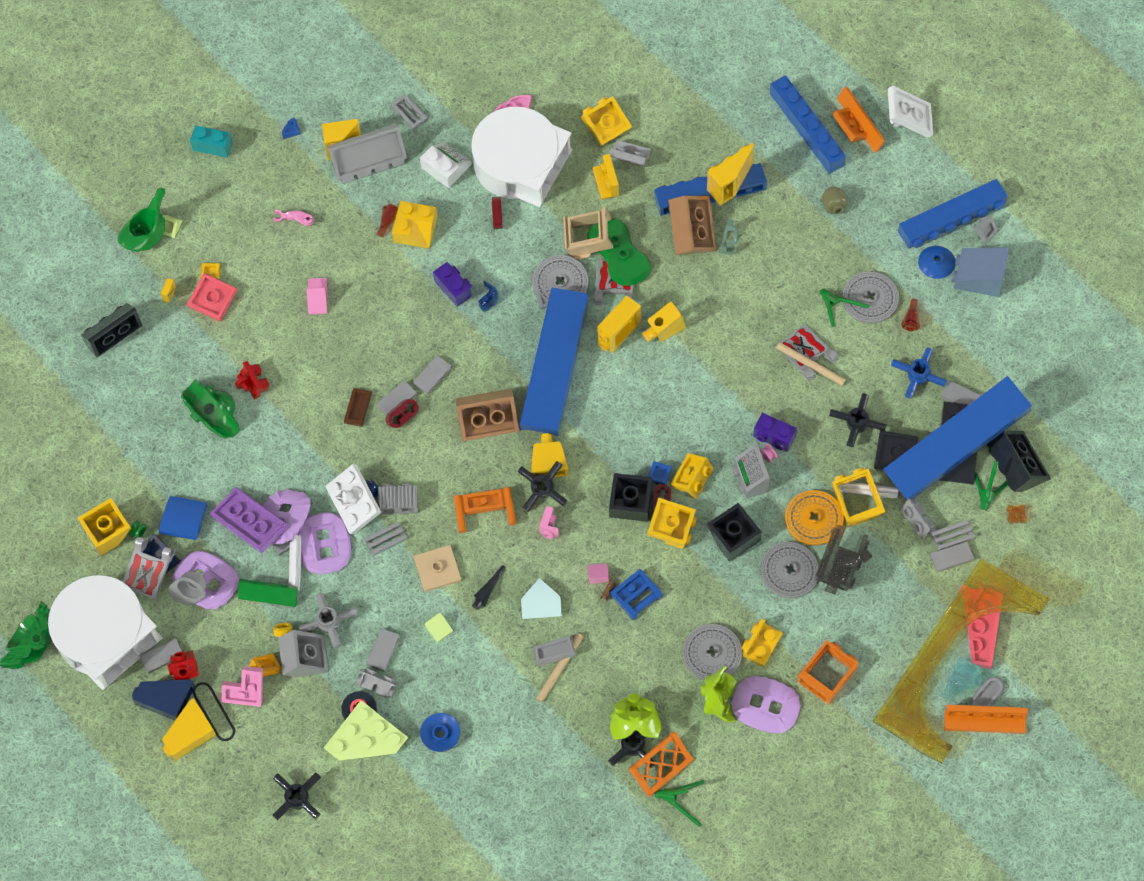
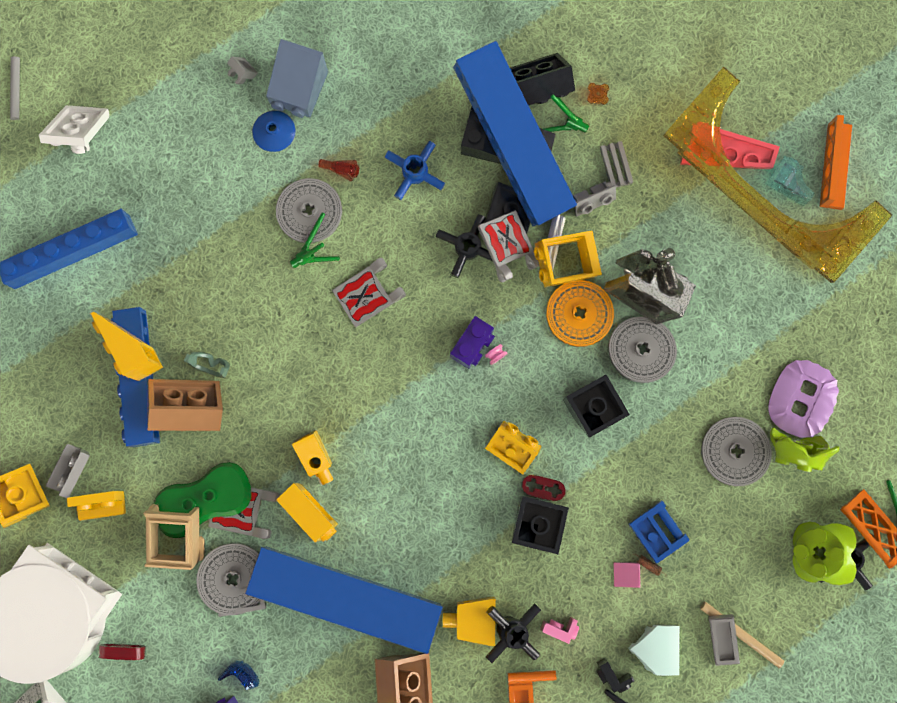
camera: 85 degrees left, 15 degrees up
(516, 563) = (607, 675): none -> black bracket
(660, 472) = (507, 485): blue plate -> none
(672, 523) = (577, 478): yellow plate -> none
(751, 472) = (523, 376): light grey slope -> none
(761, 643) = (730, 393): yellow bracket -> none
(810, 363) = (386, 291): tan bar -> none
(814, 685) = (800, 323): orange window -> none
(834, 200) = (176, 231): olive head -> none
(856, 122) = (74, 191): orange bracket -> none
(866, 447) = (507, 242): none -> flag
(939, 64) = (15, 88): none -> light grey bar
(952, 557) = (641, 170): light grey tile -> none
(953, 214) = (216, 101): blue brick -> none
(958, 394) = (448, 129): light grey tile -> none
(988, 692) = (806, 156): light grey tile -> none

